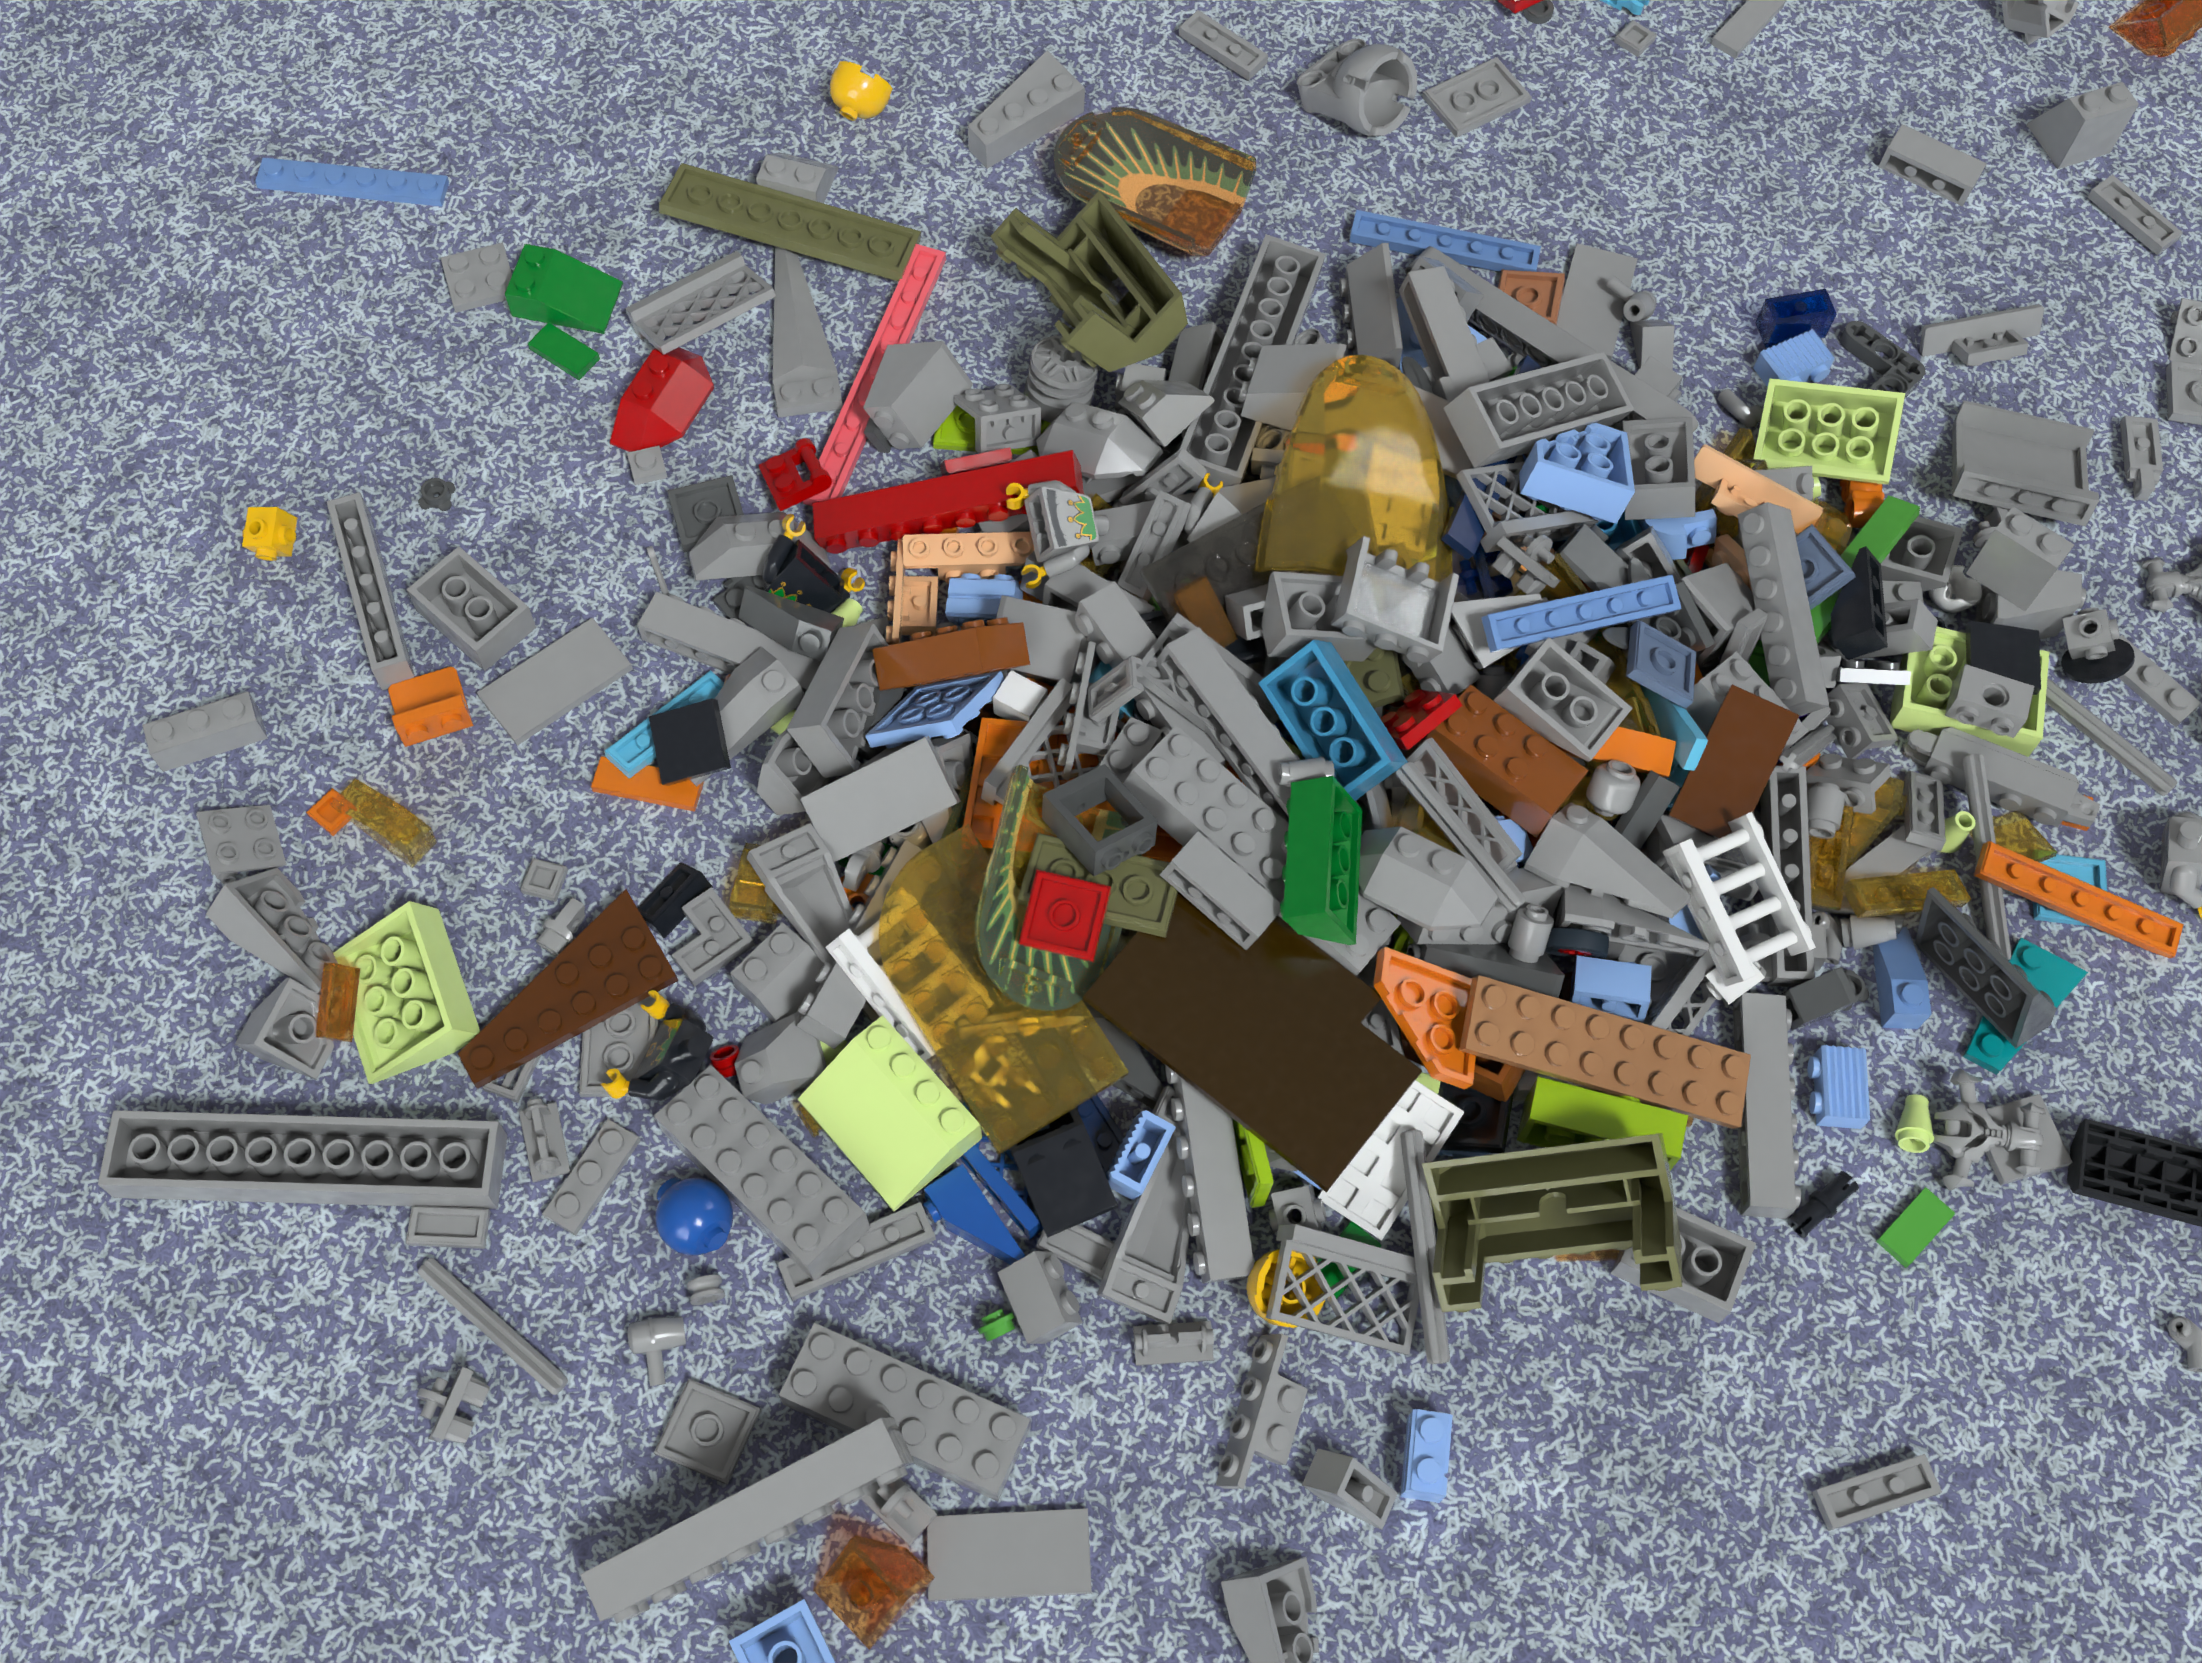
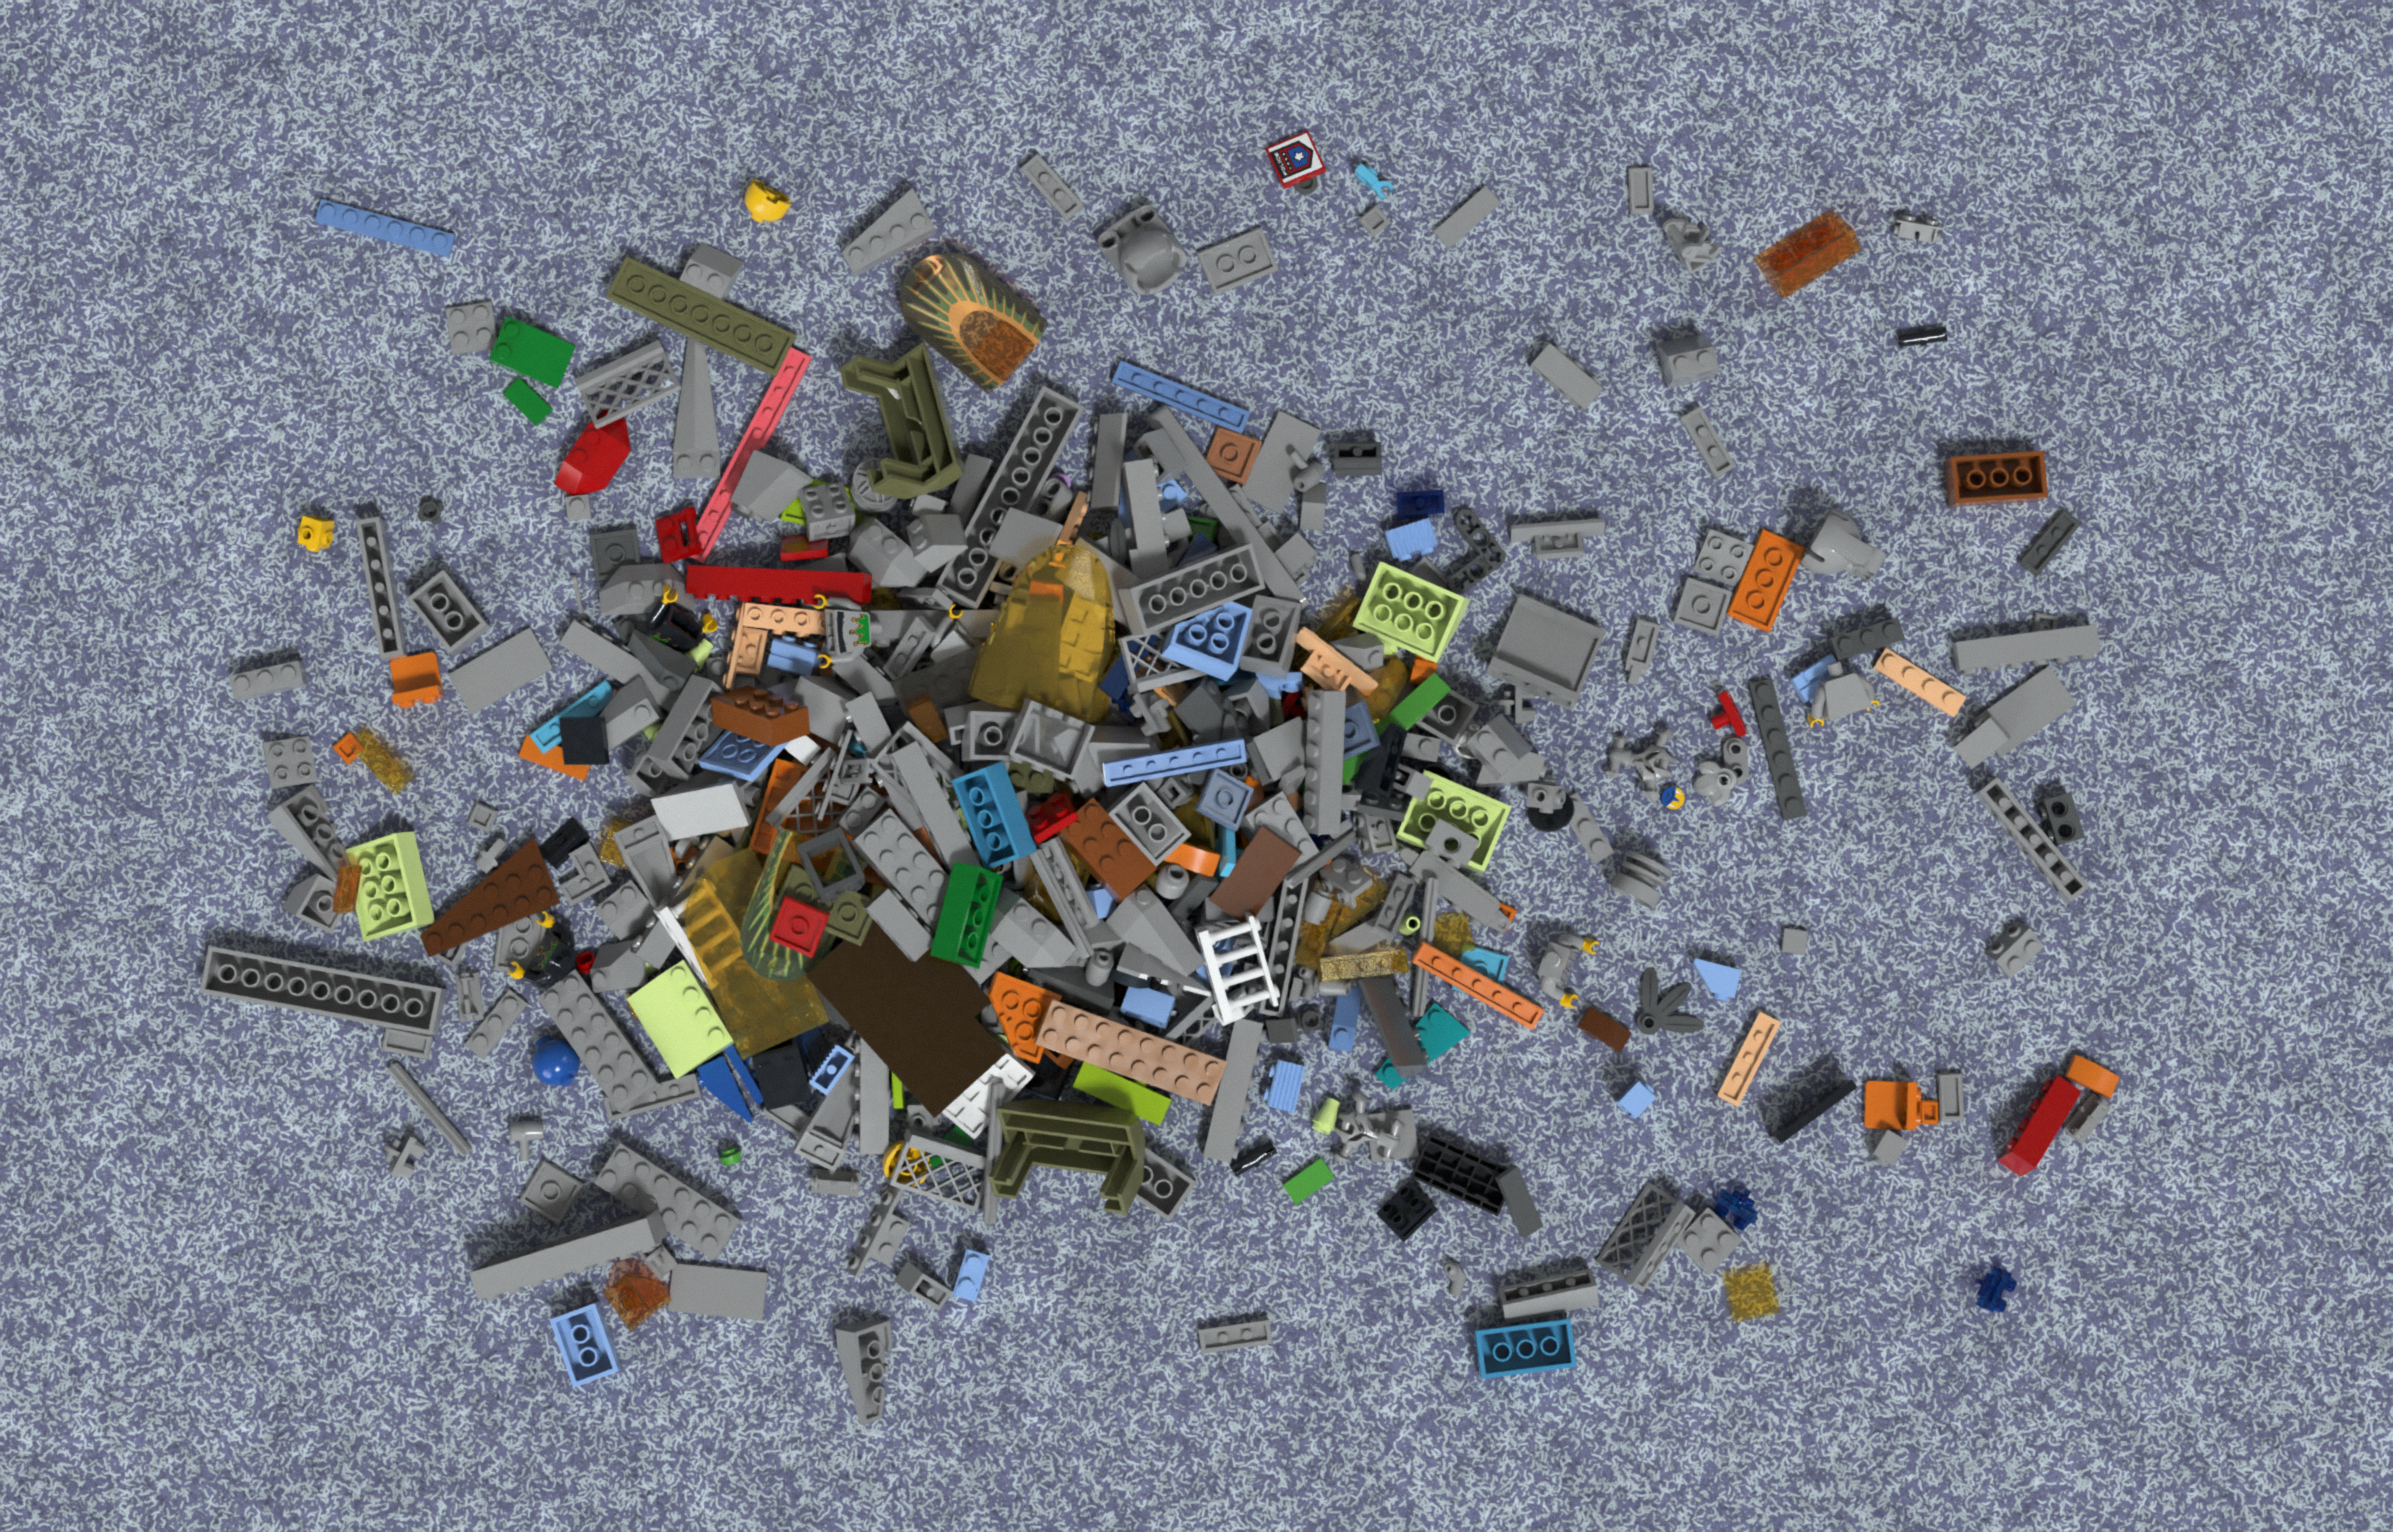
camera: 15 degrees right, 20 degrees up
(705, 1289) = (558, 1107): light grey bush -> none
(1040, 1297) = (758, 1145): light grey brick -> none
(1304, 770) = (967, 853): light grey cone -> none
(1698, 278) = (1358, 459): none -> dark grey brick
(2005, 651) = (1475, 808): black tile -> none
(2085, 1246) = (1406, 1211): none -> black bracket
(2109, 739) = (1539, 865): light grey axle -> none

